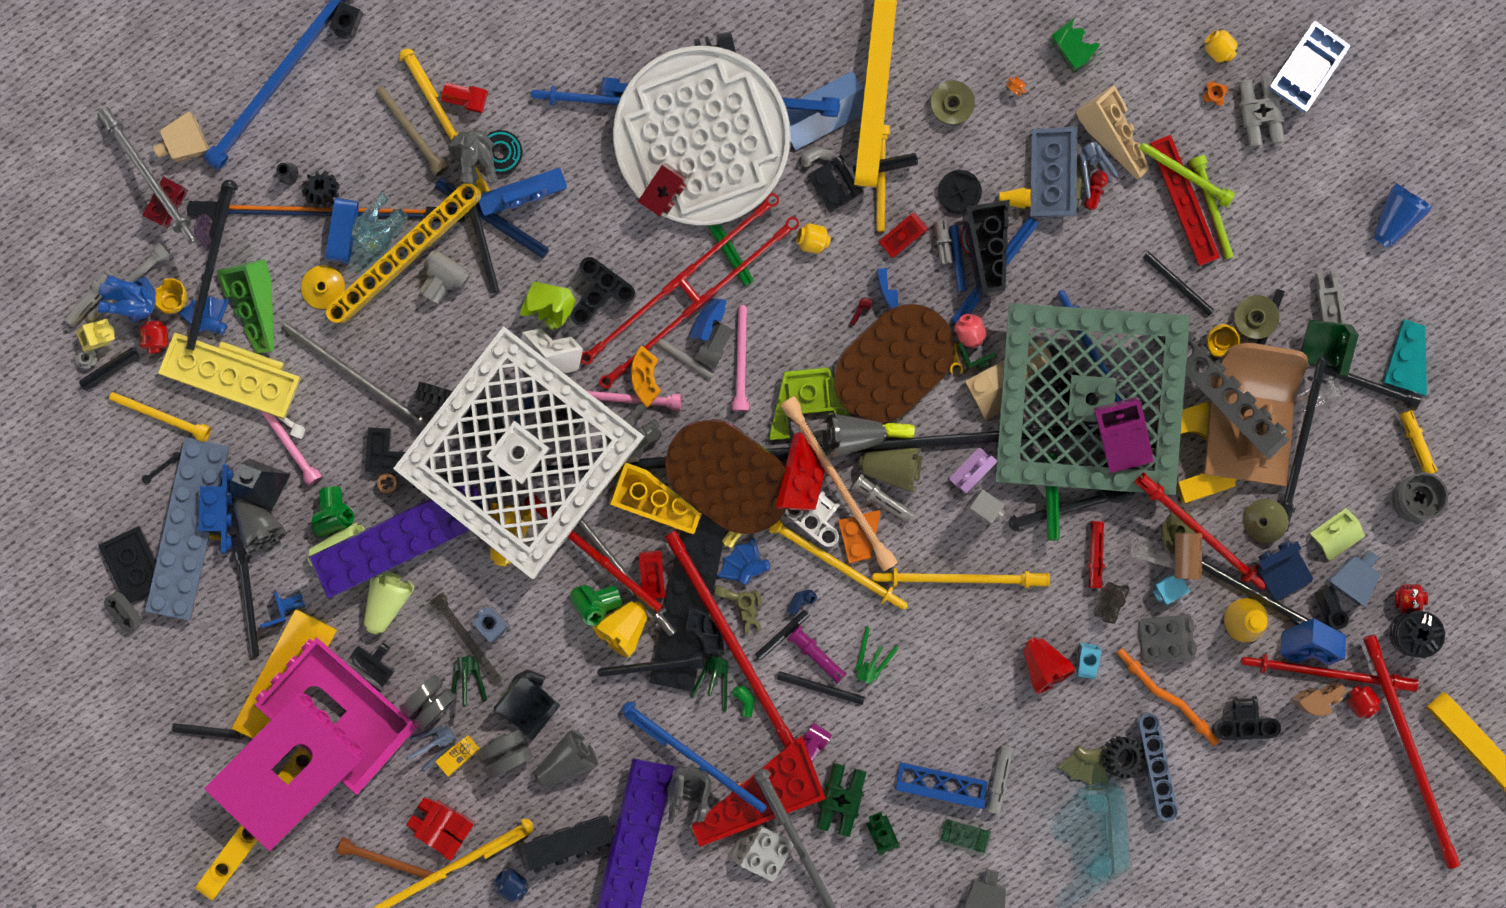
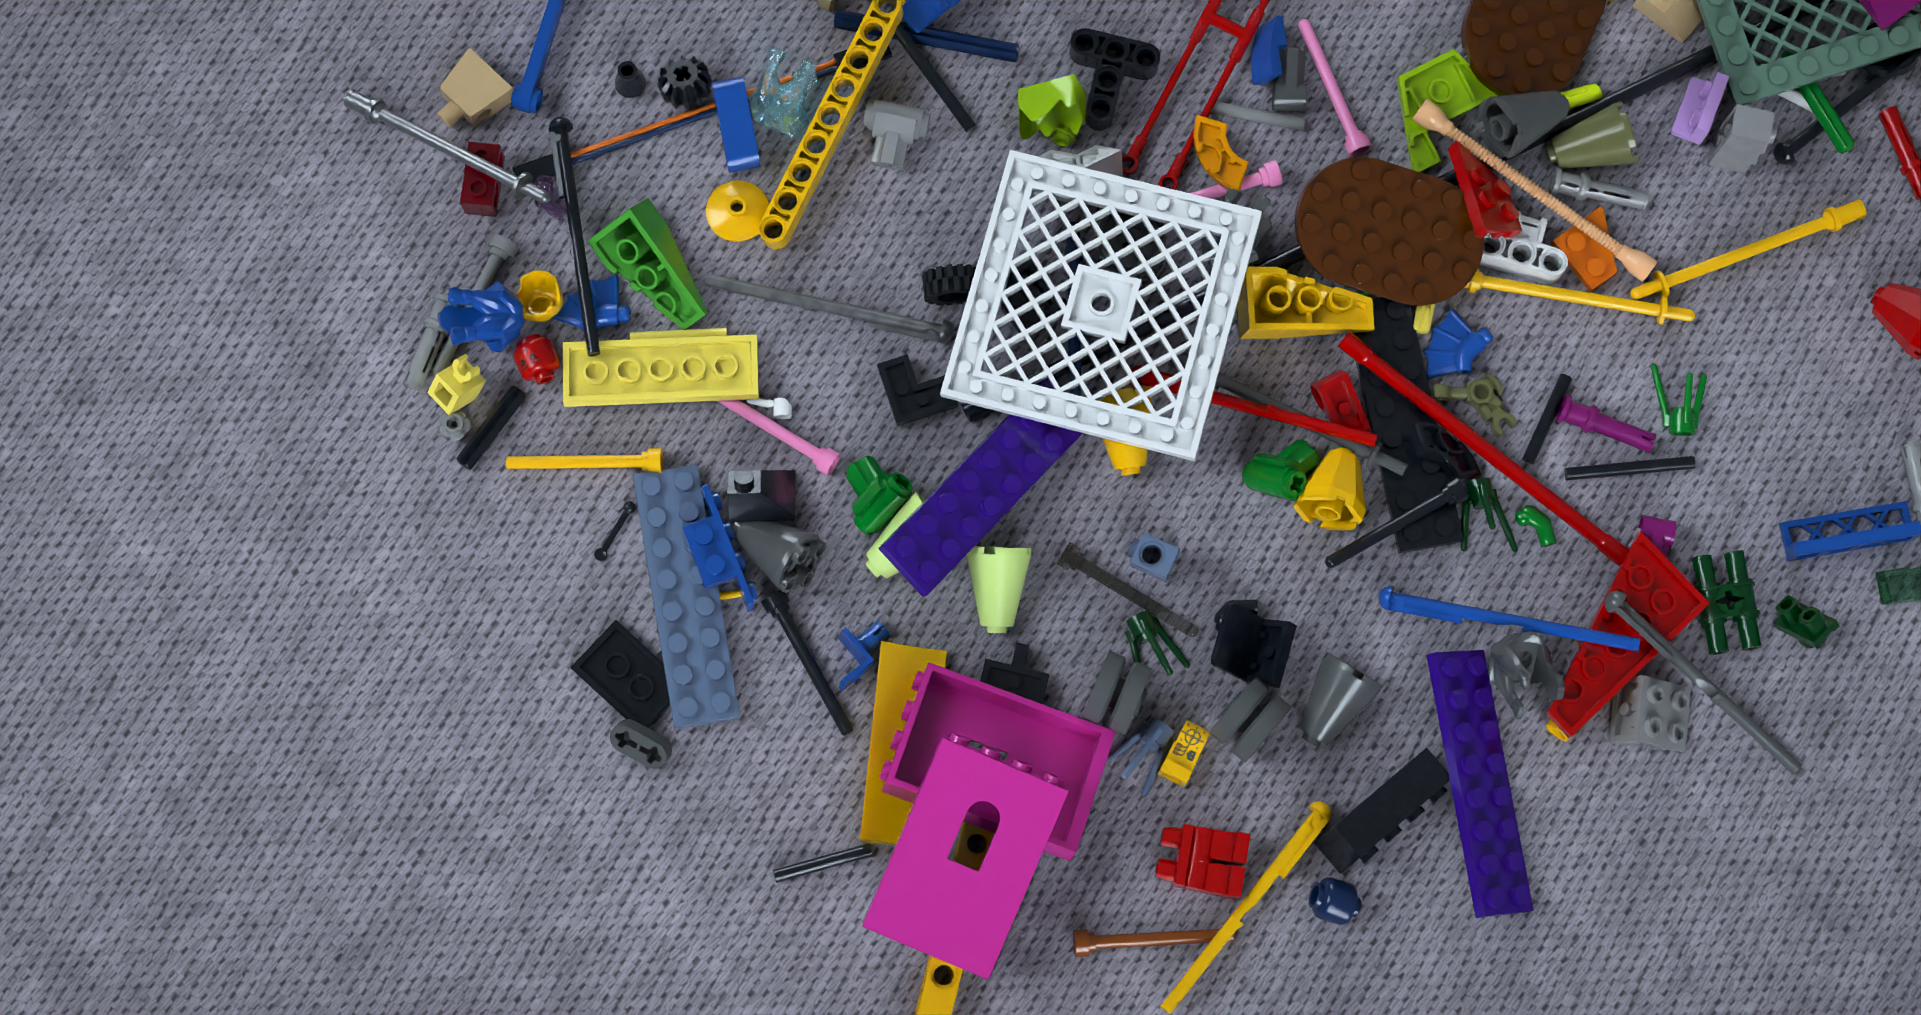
camera: 25 degrees left, 10 degrees down
(385, 477) = (925, 423): medium nougat bush -> none
(801, 598) = (1549, 362): dark blue arm -> none

